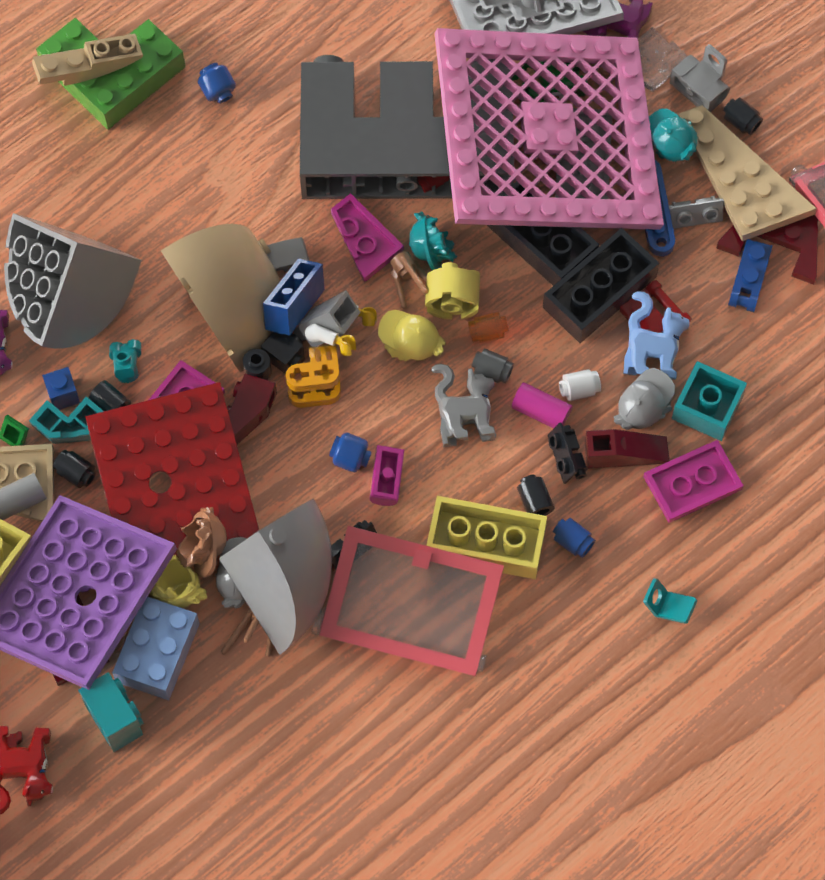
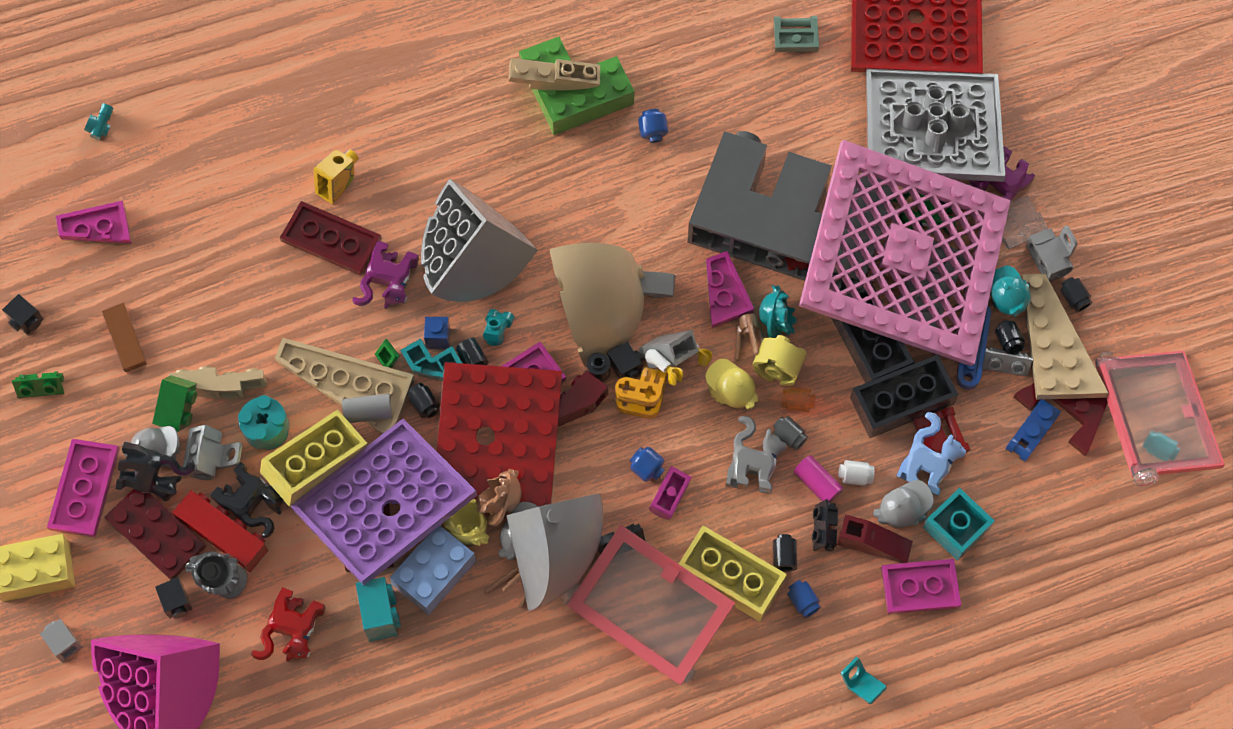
camera: 20 degrees right, 0 degrees up
(293, 296) = (648, 321): blue brick -> none
(690, 184) = (1010, 337): none -> black brick

